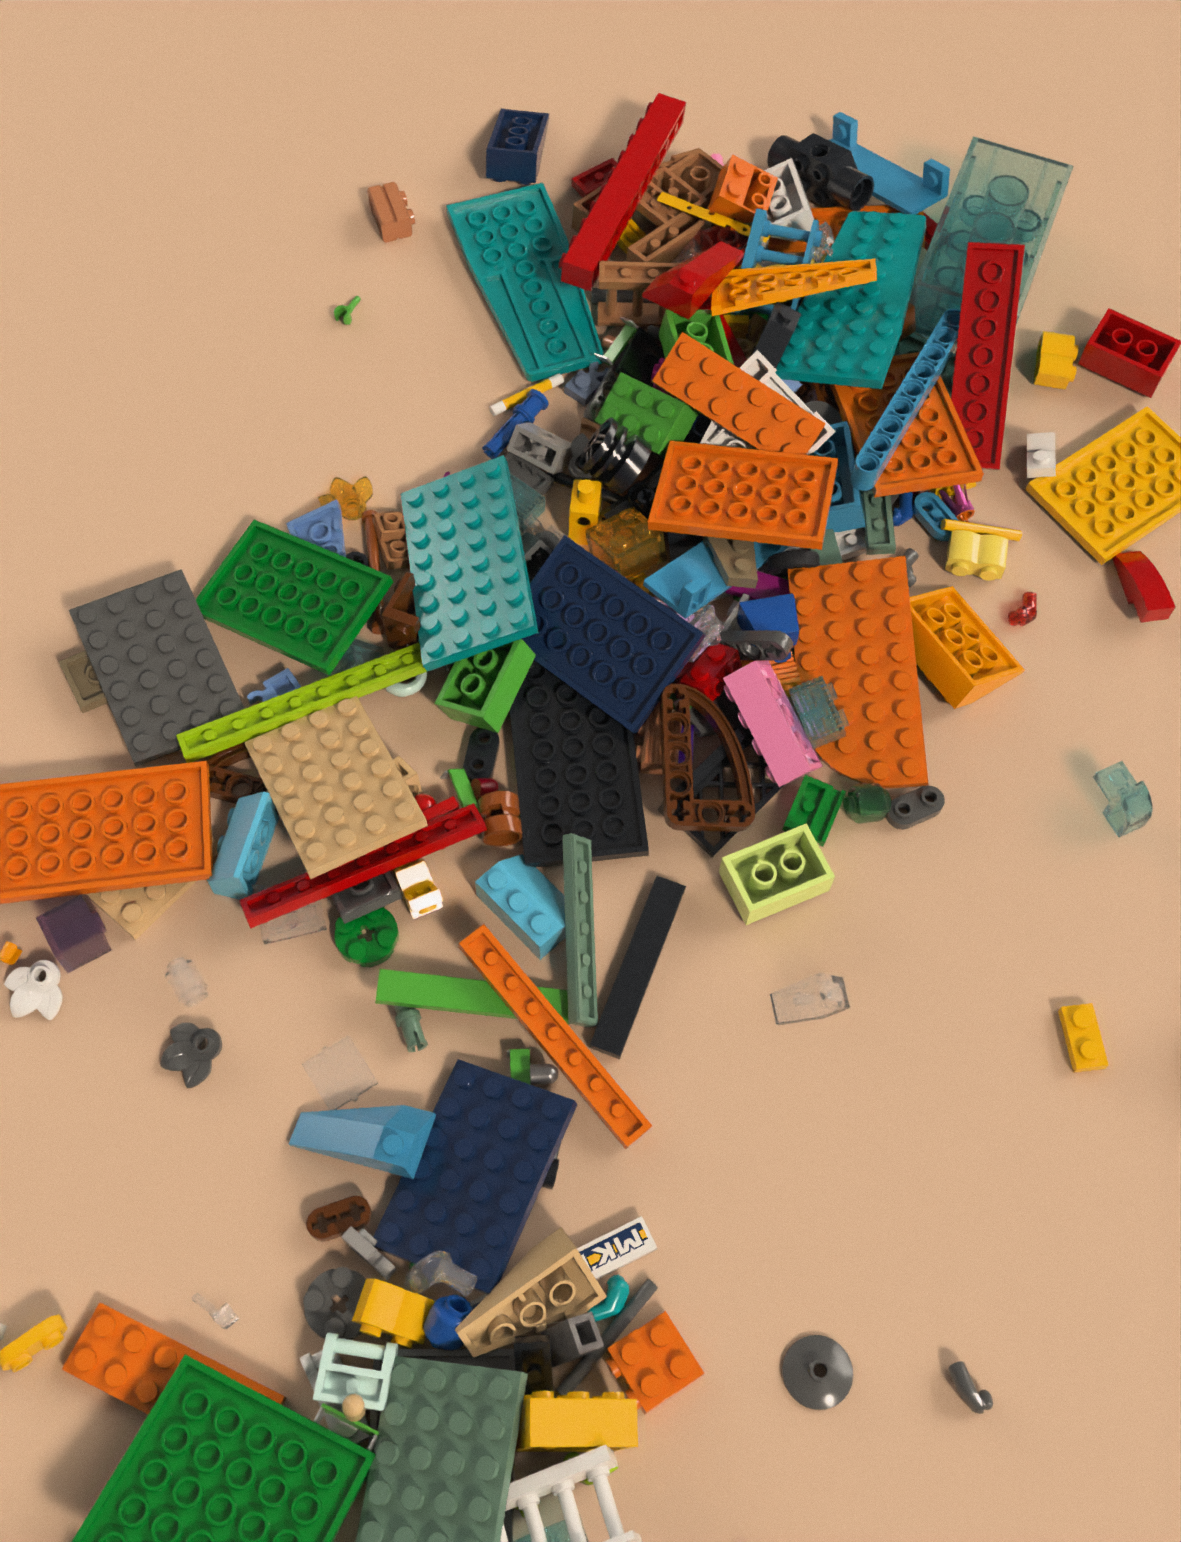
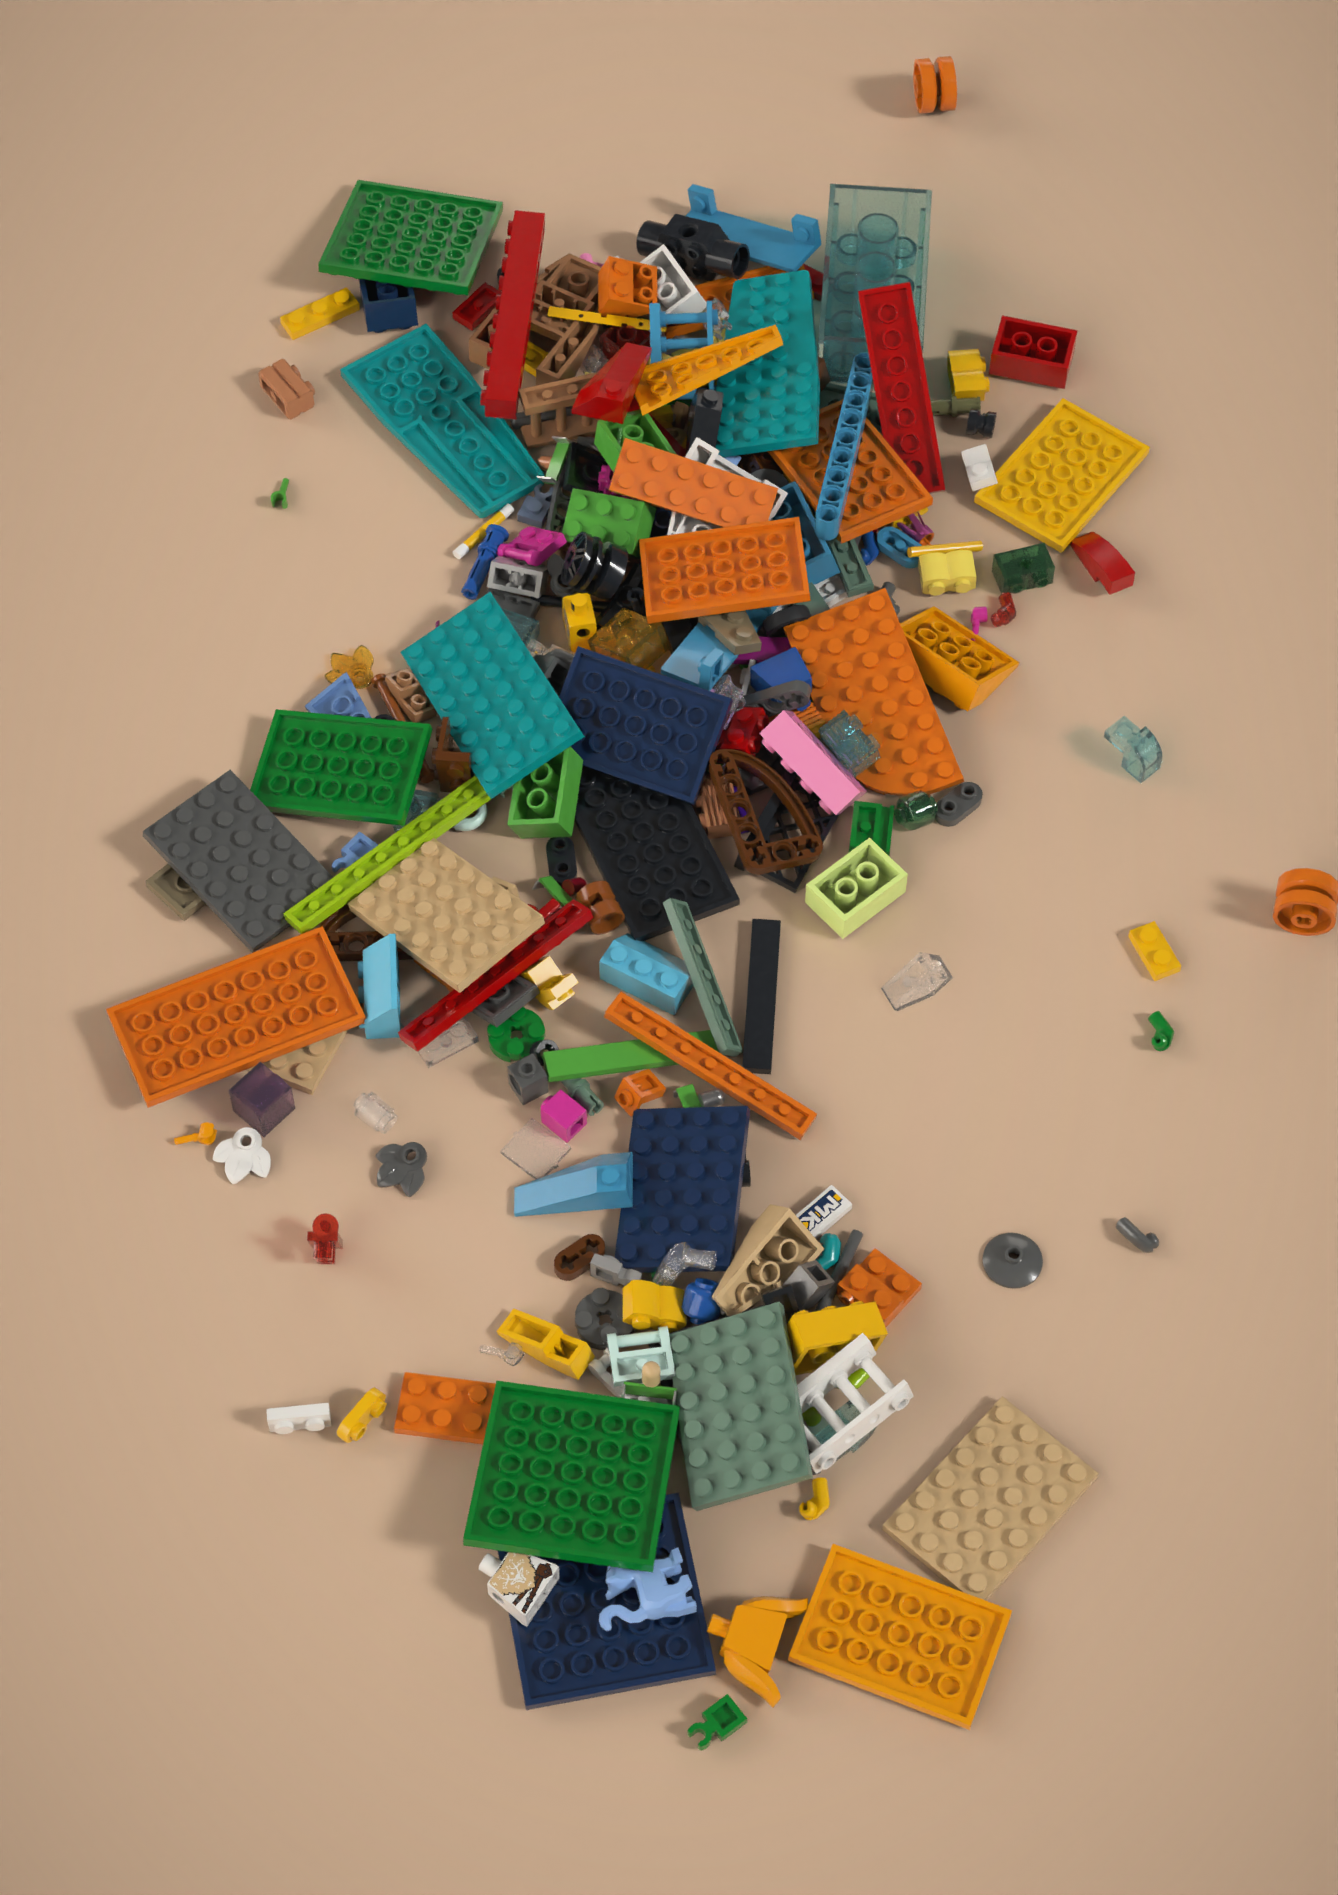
camera: 15 degrees left, 5 degrees down
(70, 1122) = (325, 1239): none -> clear red hips
(263, 1316) = (547, 1343): none -> yellow slope
(356, 992) = (527, 1079): none -> dark grey brick
(379, 1044) = (563, 1115): none -> dark pink brick
(381, 957) = (542, 1044): none -> black bush
(449, 151) = (320, 313): none -> yellow plate
(470, 1039) = (638, 1089): none -> orange bracket
(556, 100) = (411, 237): none -> green plate
(565, 420) = (532, 545): none -> dark pink plate
(996, 608) = (979, 615): none -> dark pink hand
(1035, 387) = (955, 406): none -> olive pin
(1055, 410) = (982, 423): none -> black wheel
(1057, 571) = (1023, 568): none -> clear green brick
(1067, 1141) = (1164, 1032): none -> green arm
(1104, 74) = (935, 84): none -> orange wheel

